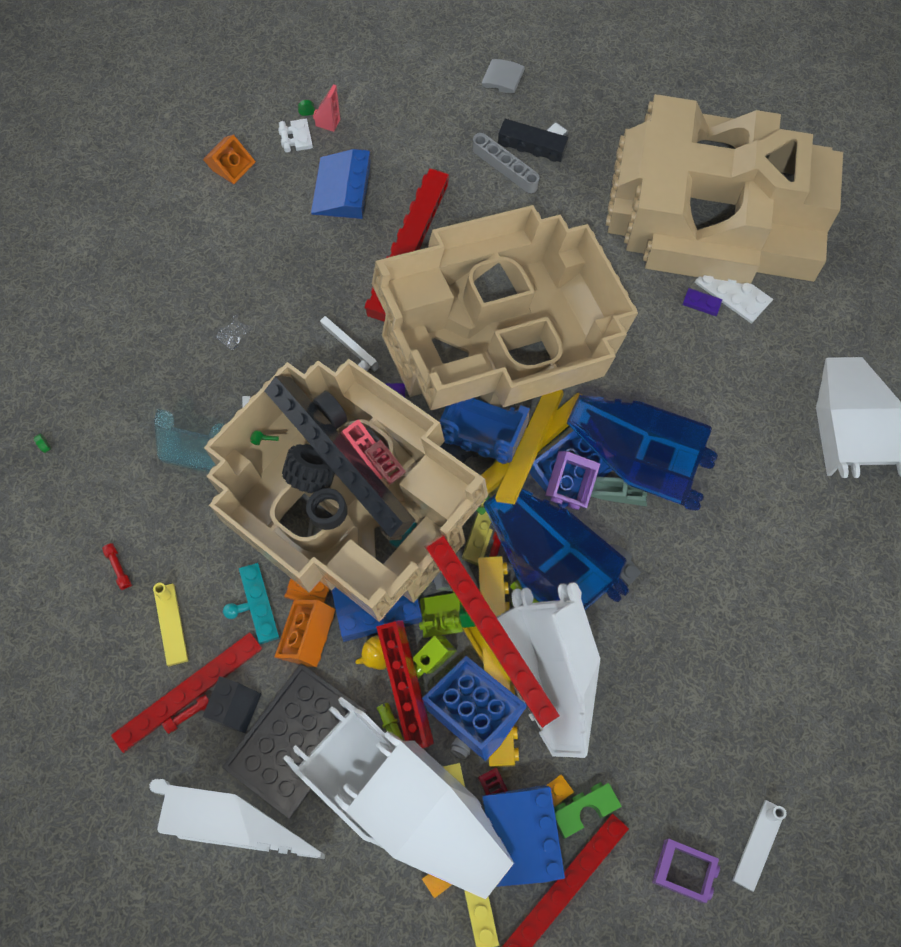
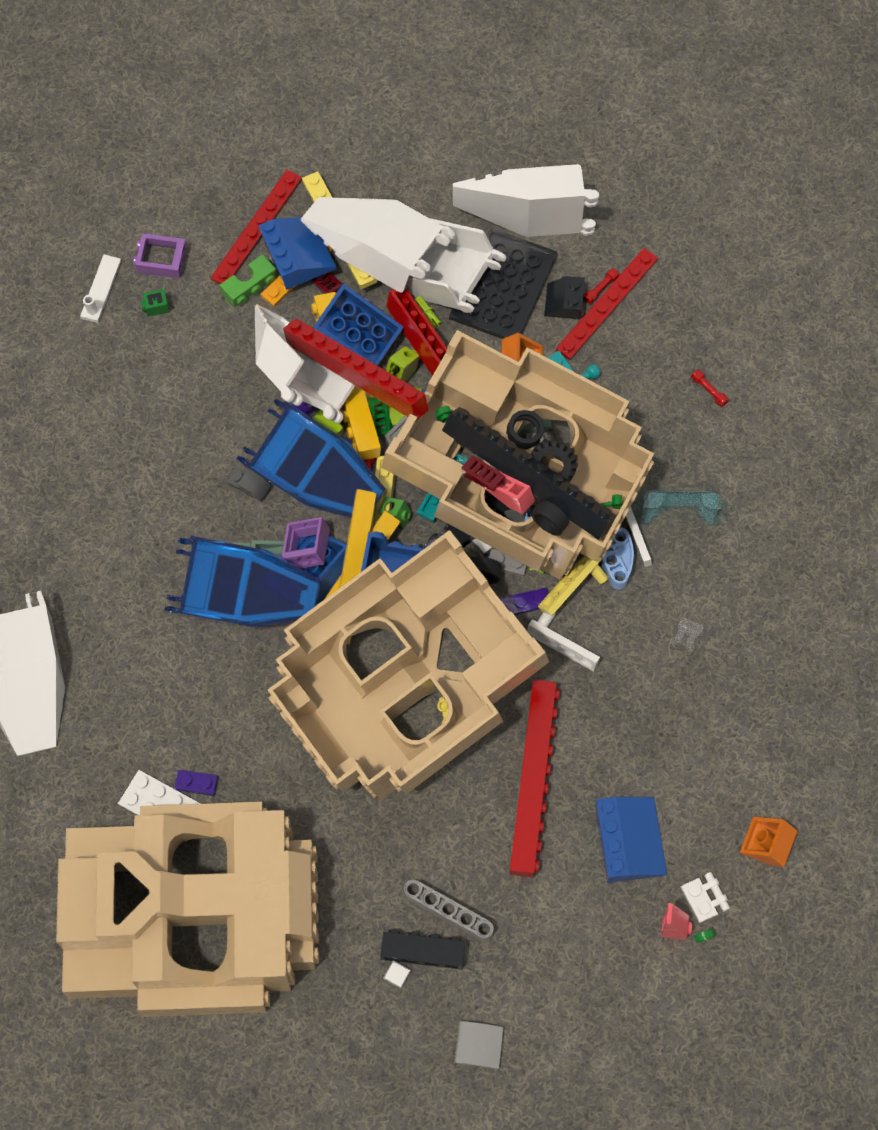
camera: 170 degrees right, 0 degrees up
(42, 443) = (827, 479): green tile -> none
(170, 624) = (642, 351): light yellow piece -> none
(408, 537) = (443, 413): none -> green plate
(698, 806) = (154, 302): none -> green brick

